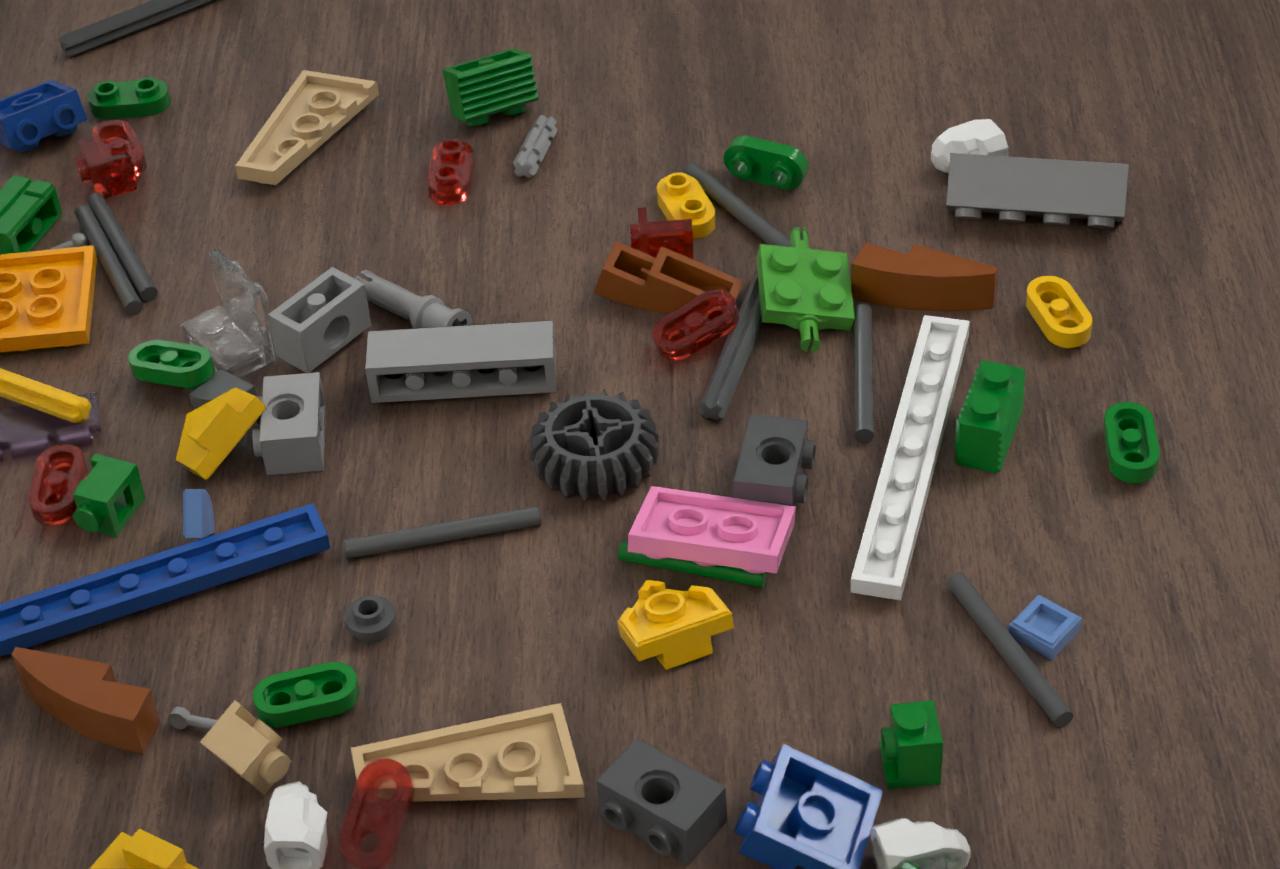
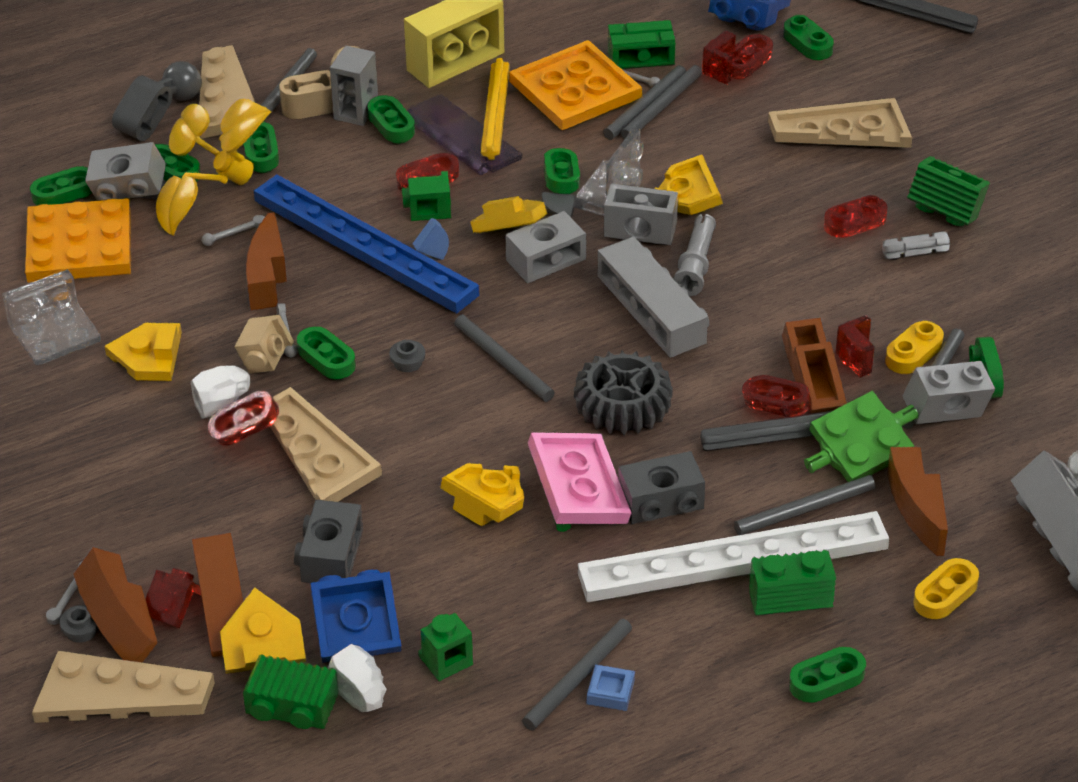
camera: 60 degrees right, 0 degrees up
(291, 264) = (694, 185): none -> yellow plate
(793, 194) = (949, 391): none -> light grey brick

